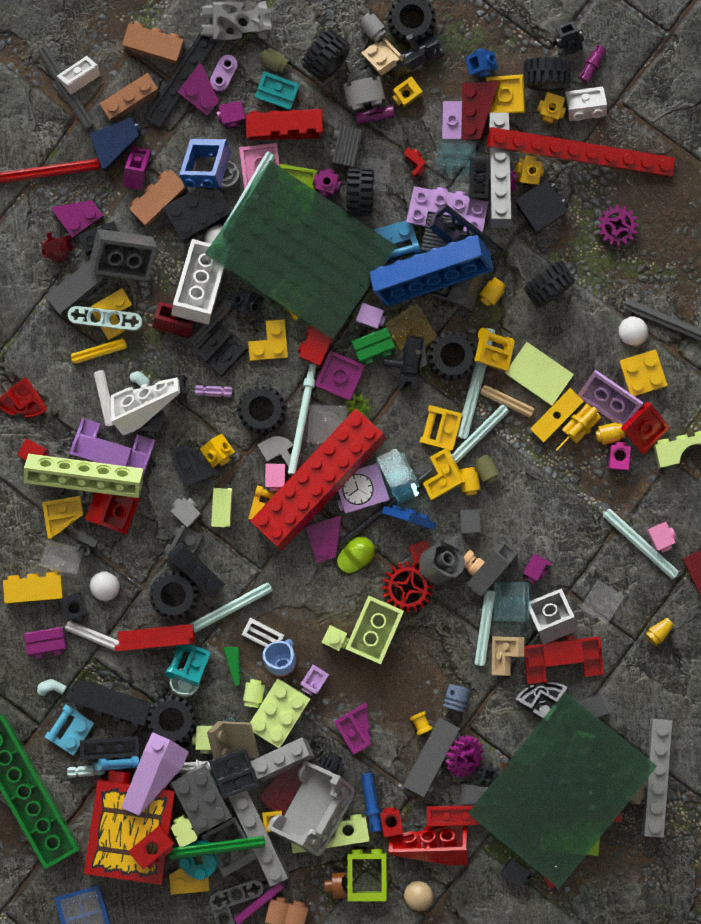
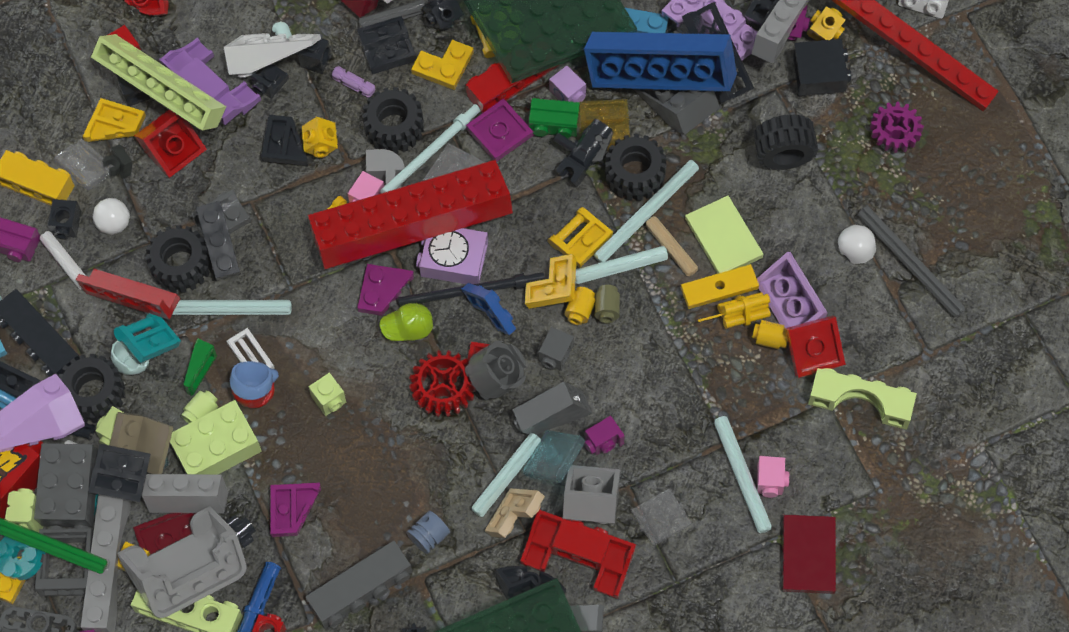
camera: 25 degrees right, 20 degrees down
(104, 396) = (235, 28): white axle -> none
(185, 511) = (247, 183): light grey brick -> none
(222, 507) = (289, 200): yellowish green panel -> none
(314, 680) = (276, 429): lavender bracket -> none
(360, 399) = (507, 163): clear neon green gear -> none
(374, 629) = (377, 406): yellowish green brick -> none
(398, 475) = (501, 253): clear light blue brick -> none
(421, 723) = (369, 539): yellow bush -> none
(464, 756) = (386, 601): magenta gear -> none
(472, 563) = (529, 389): light nougat wheel -> none
(491, 355) = (680, 184): yellow plate -> none
(492, 292) = (717, 126): yellow brick -> none
(619, 465) = (764, 374): dark pink brick -> none
(643, 373) = (845, 292): yellow plate -> none
(659, 632) = (711, 582): yellow cone -> none

